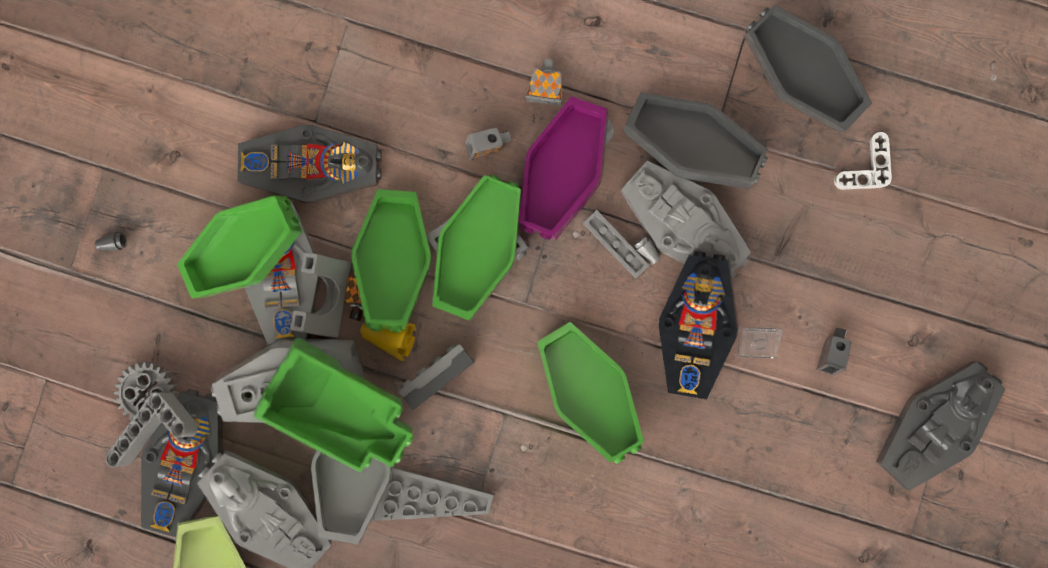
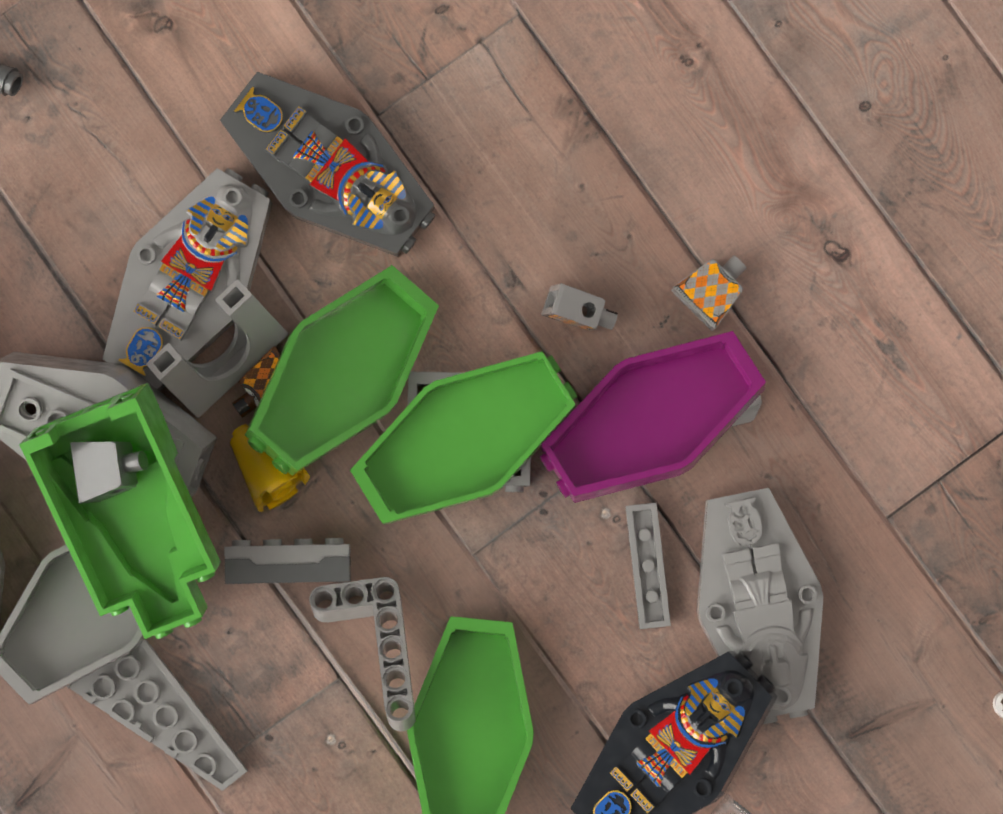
camera: 30 degrees right, 0 degrees up
(239, 247) = (159, 210): bright green container -> none
(307, 396) = (105, 469): none -> torso
(514, 376) = (386, 638): none -> light grey beam
(646, 248) = (683, 603): light grey cone -> none
(695, 141) = (850, 509): dark grey container -> none

